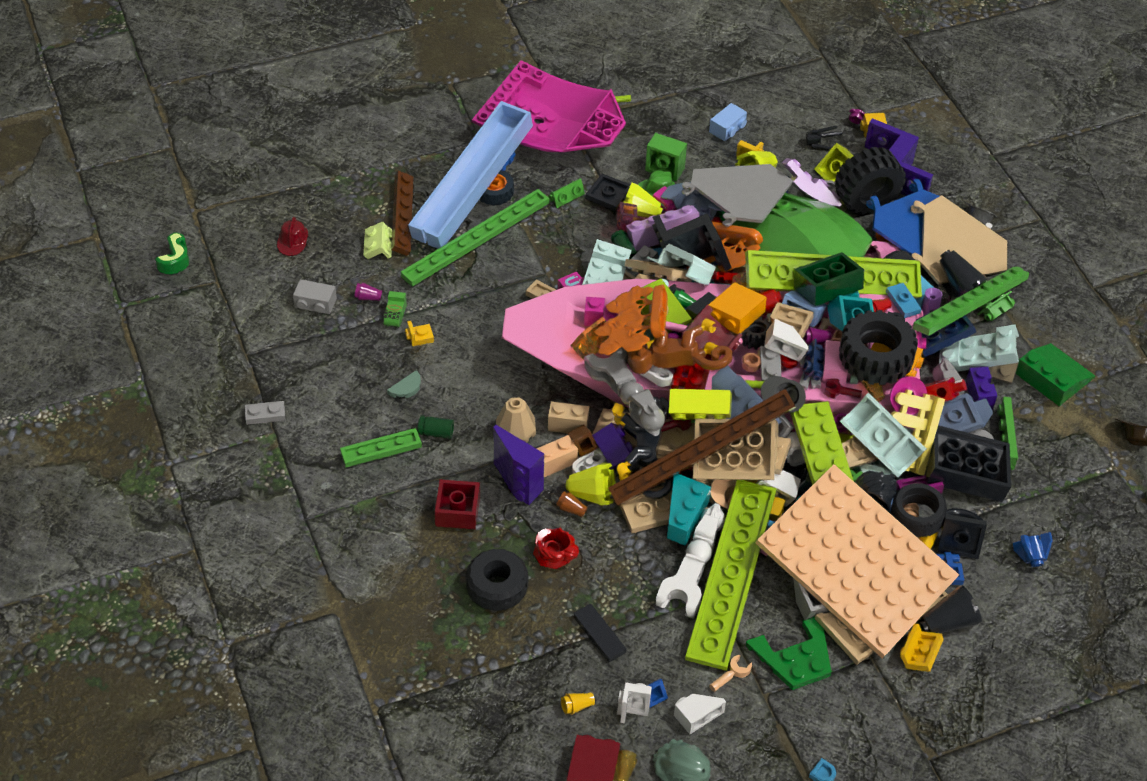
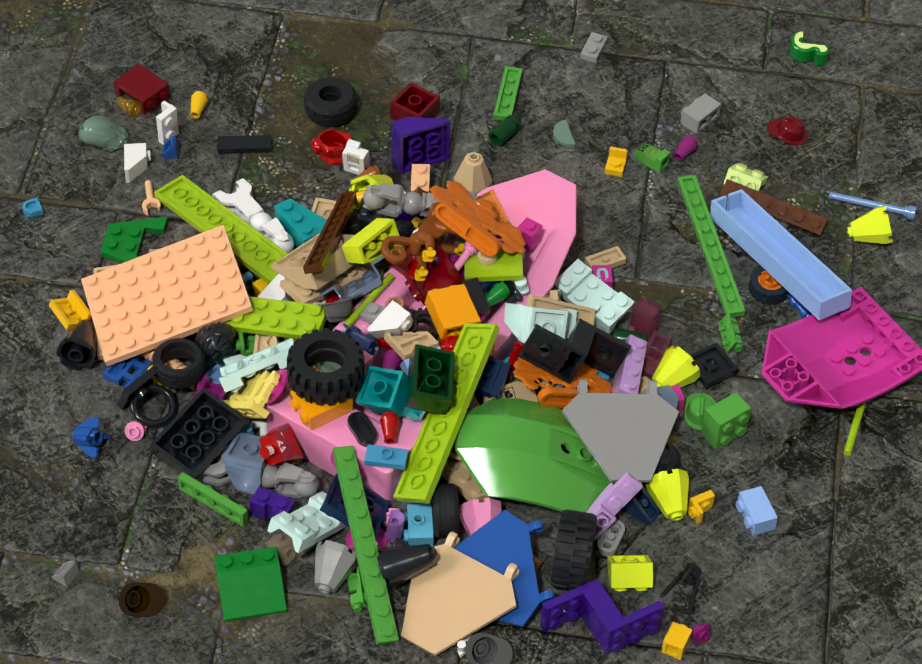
camera: 120 degrees right, 0 degrees up
(347, 134) = (908, 212): none -> medium blue piece
(386, 141) = (871, 227): none -> neon yellow cone
(561, 515) = (355, 158): none -> white piece
(601, 230) = (645, 316): none -> clear pink brick
(991, 317) = (332, 565): none -> light grey cone
(994, 526) = (135, 430): none -> bright pink plate

